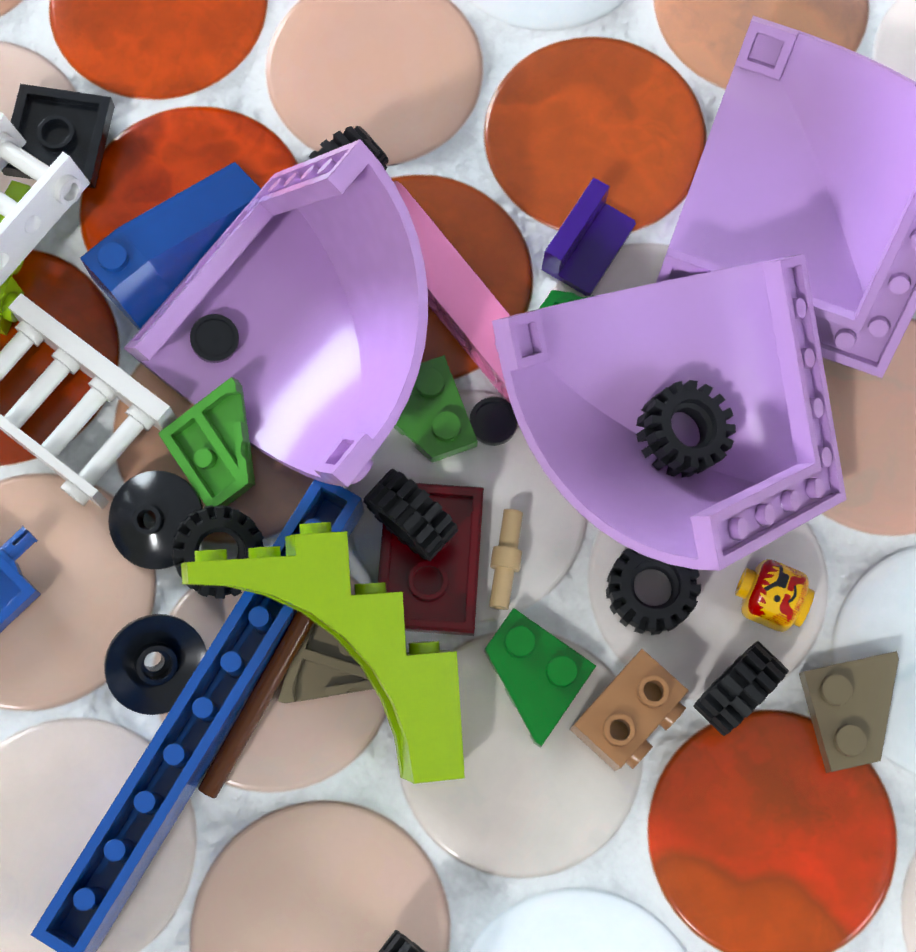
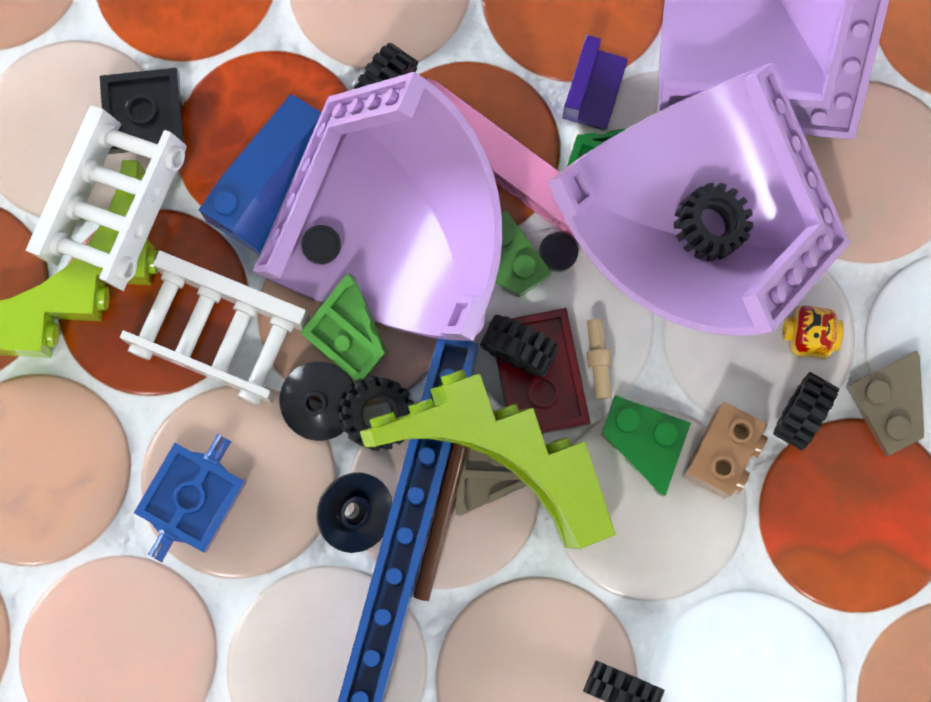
camera: 10 degrees left, 5 degrees up
(645, 616) = (712, 374): black tyre -> none

